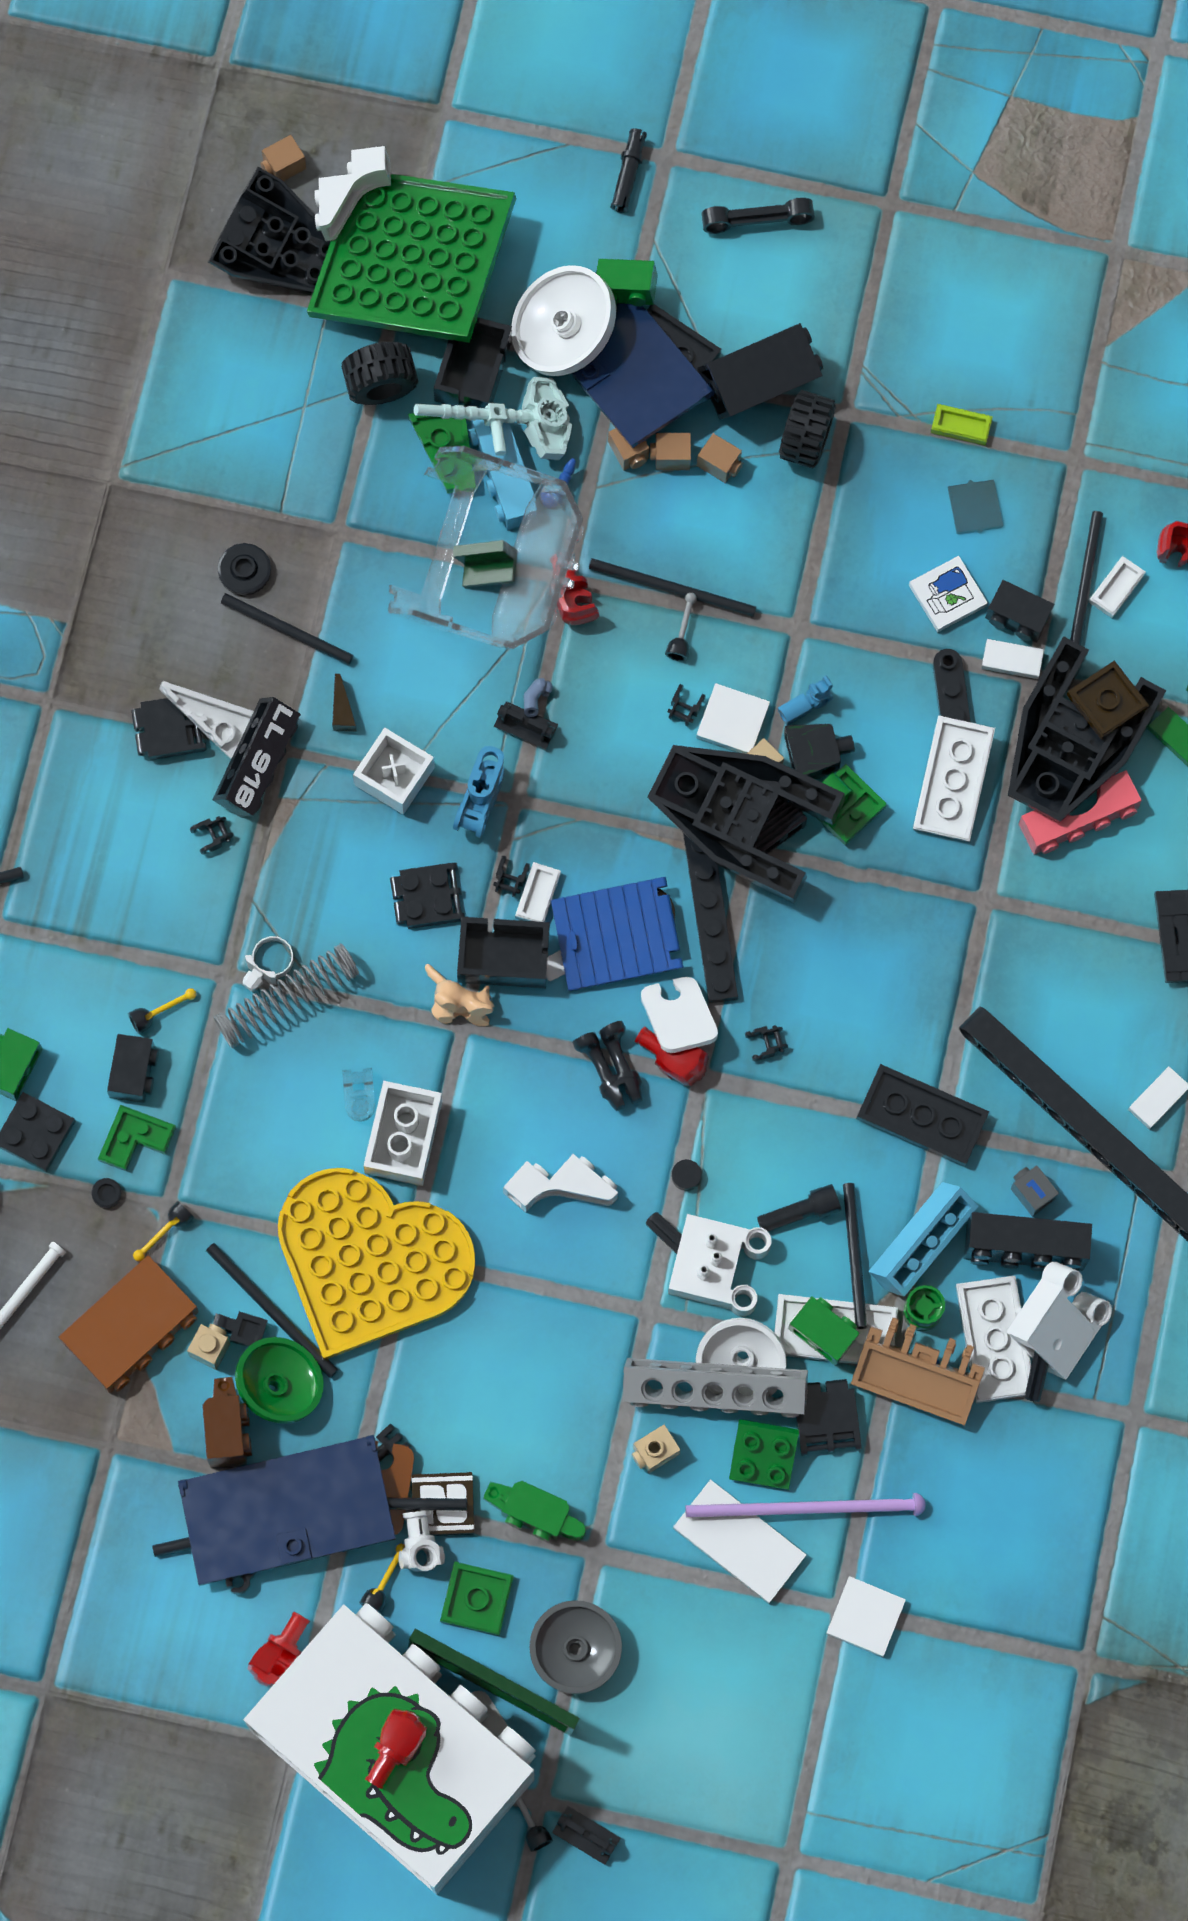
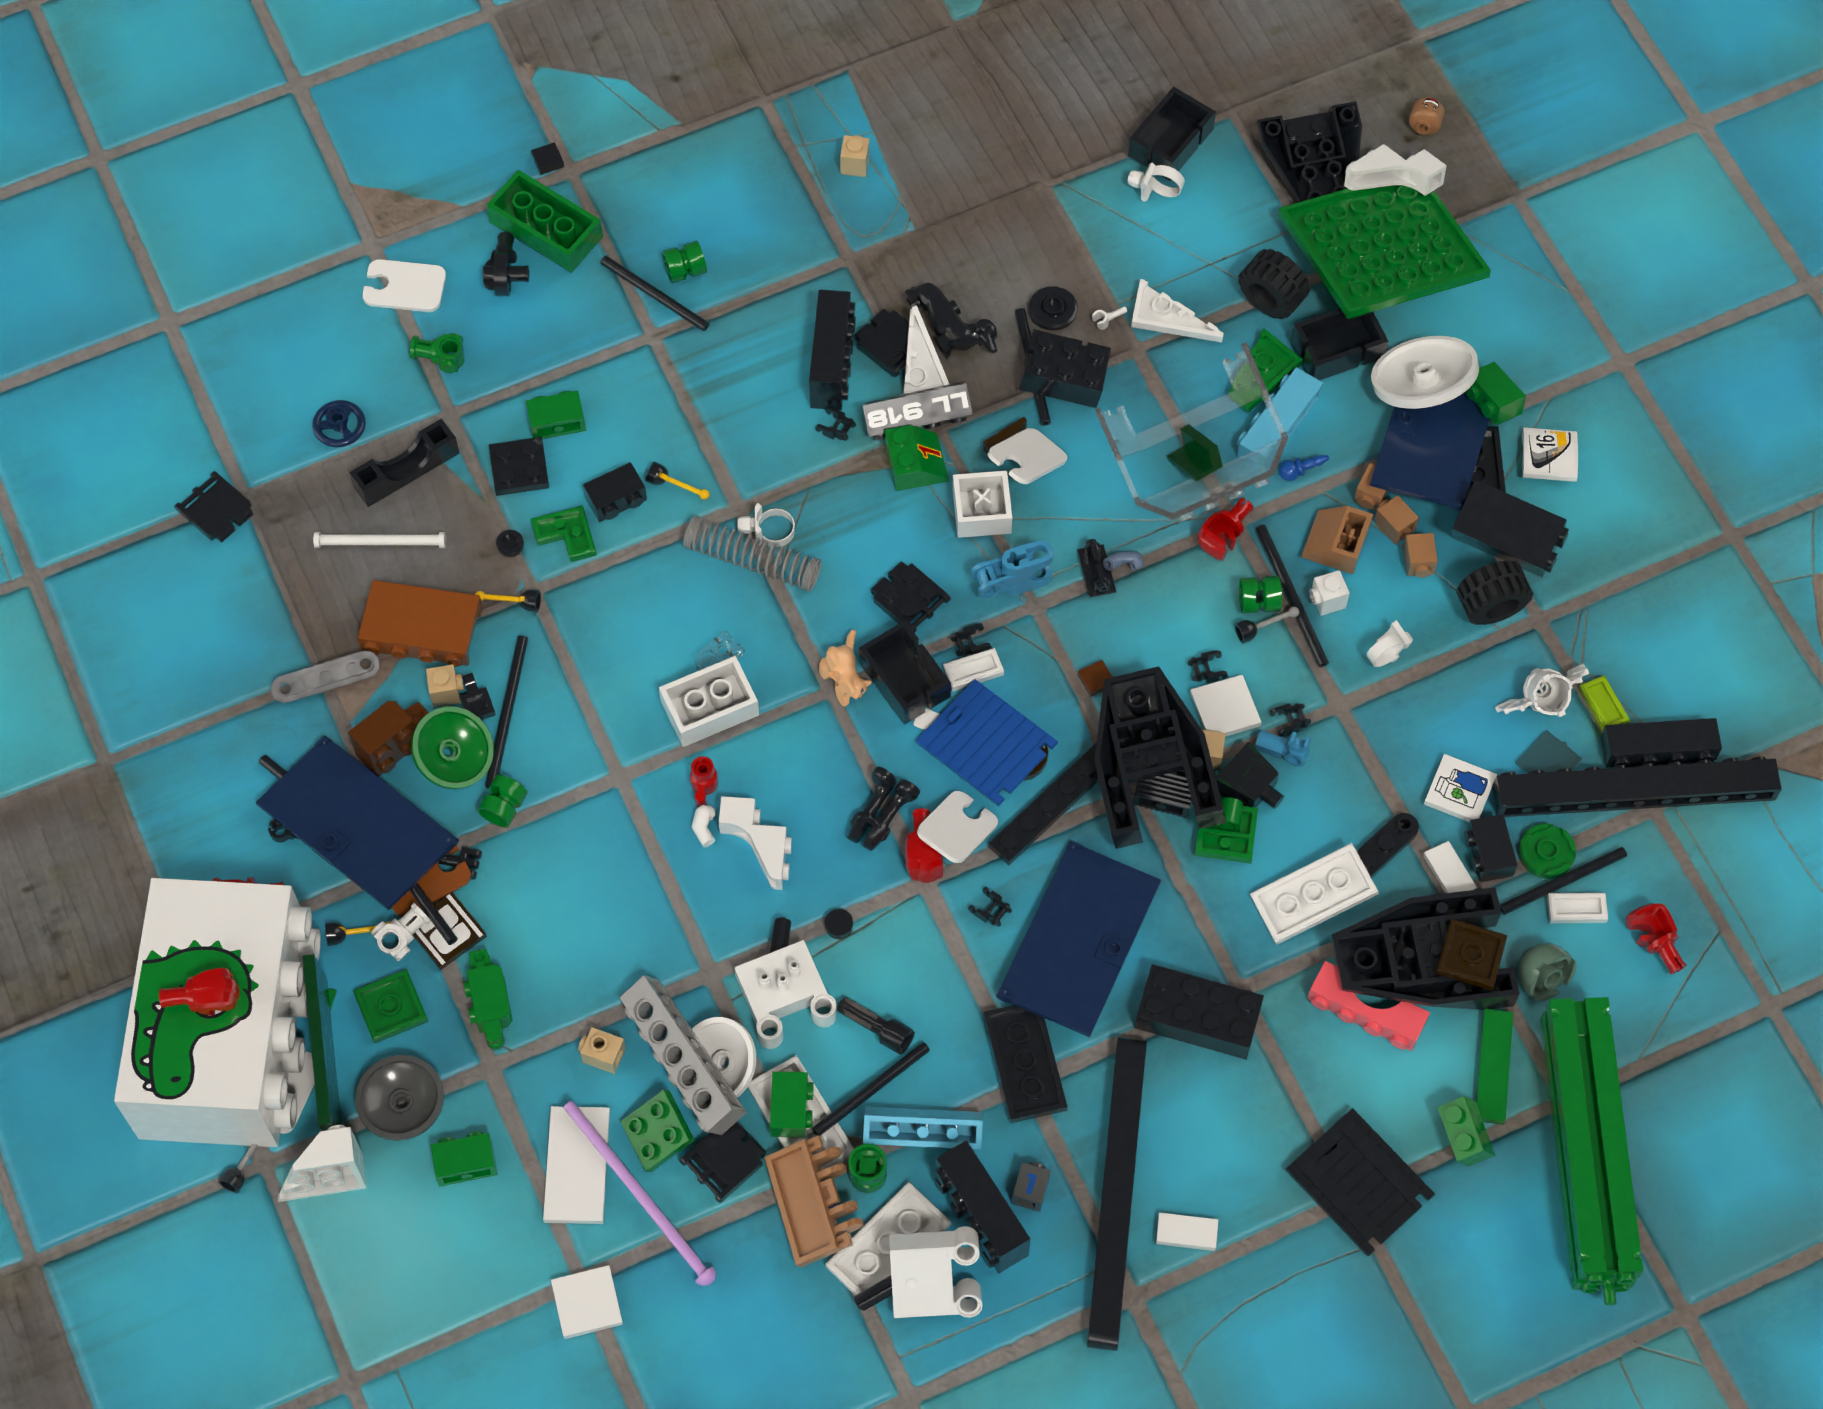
camera: 55 degrees right, 10 degrees down
(116, 1442) = (325, 676): none -> plate
(142, 784) = (832, 349): none -> black brick
(155, 341) = (1172, 131): none -> black piece
(188, 392) = (1148, 182): none -> white piece
(190, 667) = (948, 326): none -> black animal
(283, 159) = (1380, 120): medium nougat brick -> none
(289, 530) = (1100, 314): none -> white hand
(299, 793) = (914, 457): none -> green slope
(310, 120) = (1426, 116): none -> medium nougat head
(318, 605) = (1065, 368): none -> black piece
(325, 485) = (1162, 314): none -> white wing
(360, 1372) = (503, 799): none -> green wheel
(368, 1262) = (595, 749): yellow plate -> none
(377, 692) = (1032, 452): none -> white piece
(469, 1191) = (703, 779): none -> red piece
(507, 1222) = (700, 824): none -> white arm
(541, 411) = (1342, 415): light aqua bar -> none
(586, 1835) = (259, 1212): black hinge -> none
(594, 1751) = (326, 1166): none -> white wedge
(625, 801) = (1093, 677): none -> reddish brown tile
(630, 162) = (1597, 337): black pin -> none
(654, 510) = (1338, 537): none -> medium nougat slope
(658, 610) = (1269, 590): none -> green wheel
(667, 1630) = (463, 1158): none -> green brick
(698, 556) = (1329, 593): none -> white brick
(708, 283) = (1550, 454): none -> white slope
(720, 218) = (1661, 472): black piece -> none
(774, 672) = (1287, 710): none -> black piece
(782, 543) = (1389, 646): none -> white piece
(850, 992) = (1079, 939): none -> dark blue door
(920, 460) = (1553, 697): none -> white helmet
(986, 946) = (1199, 1011): none -> black brick
(1030, 410) = (1661, 742): none -> black brick
(1051, 570) = (1547, 851): none -> green tile
(1053, 460) = (1636, 787): none -> black brick
(1153, 655) = (1545, 969): none -> sand green cylinder

